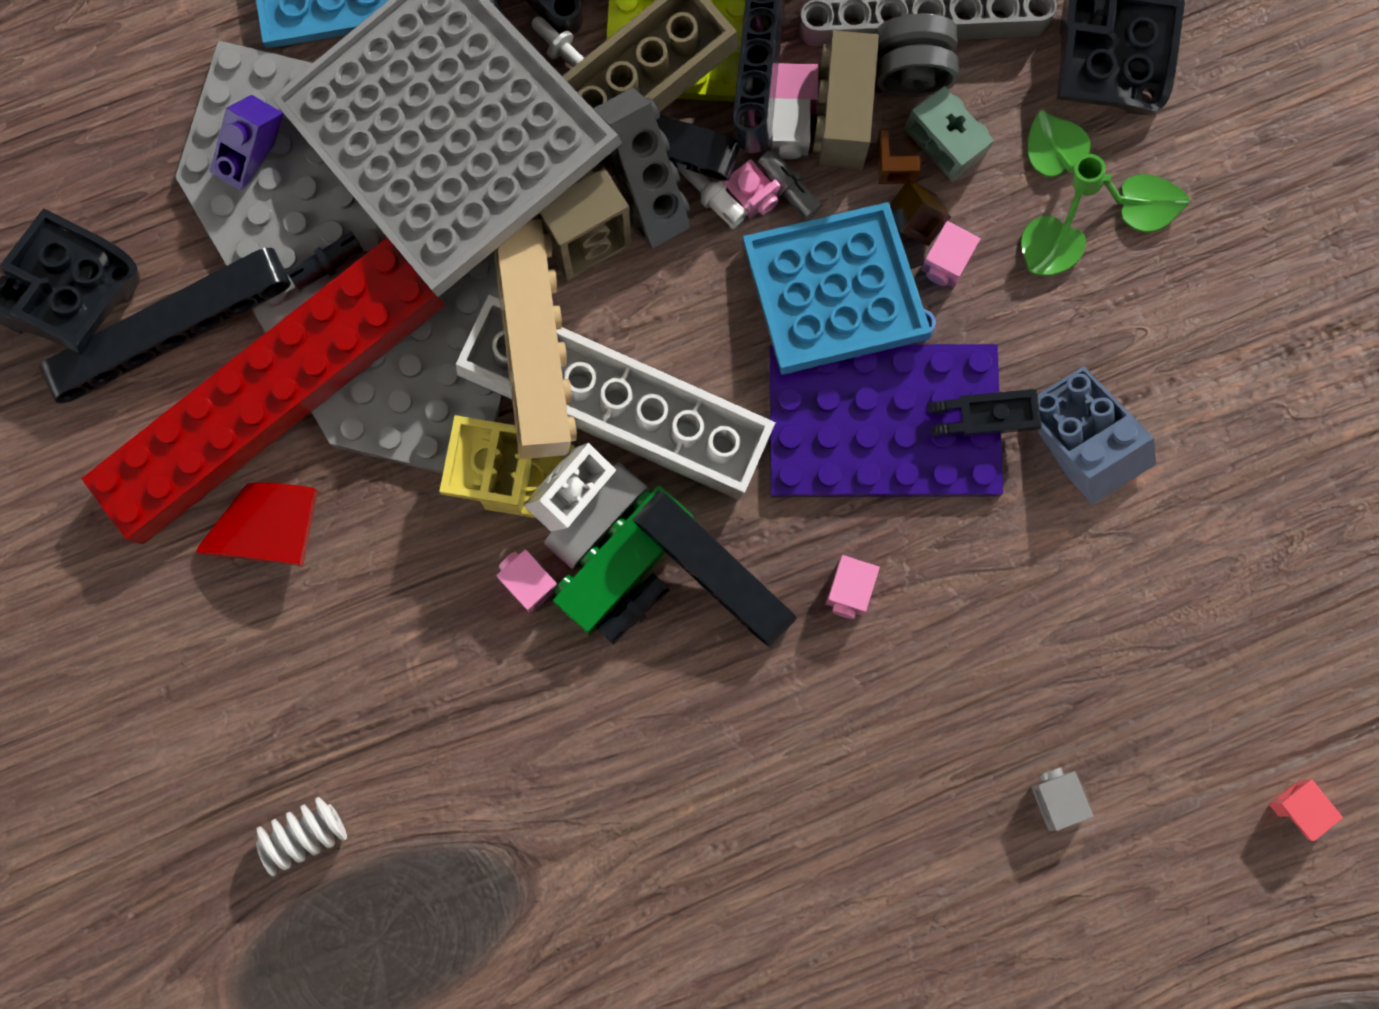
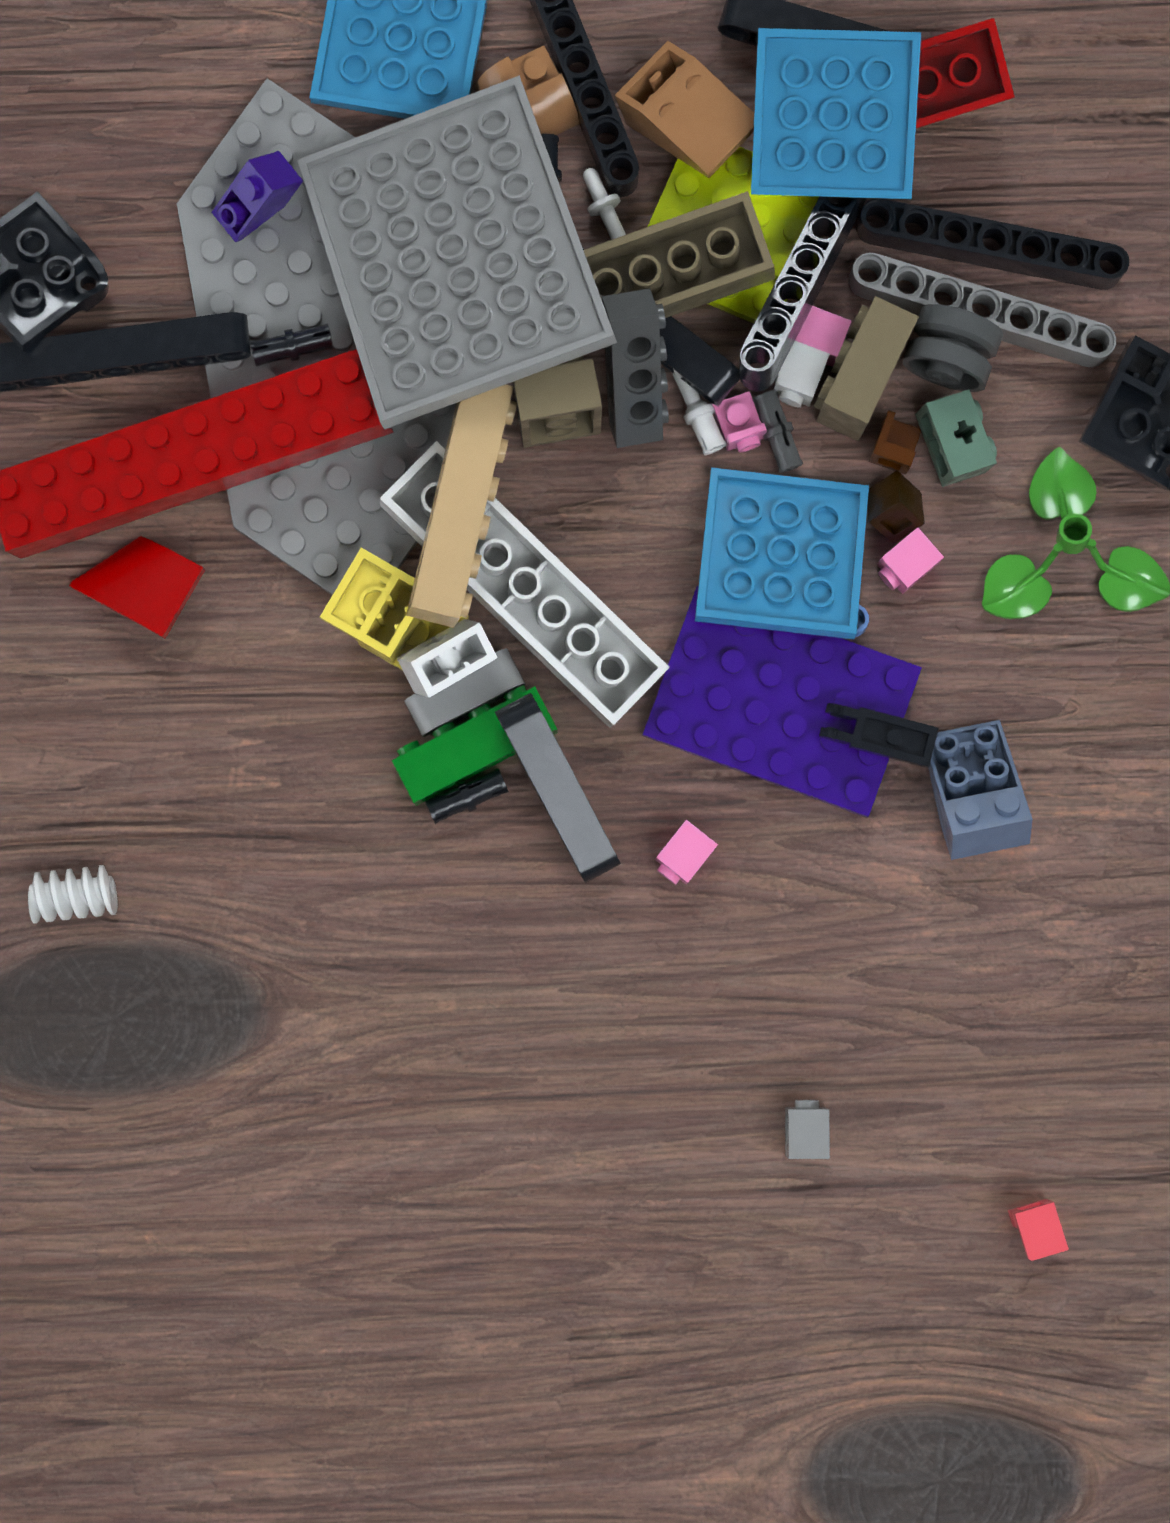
camera: 20 degrees right, 5 degrees up
(526, 580) = (374, 730): bright pink brick -> none

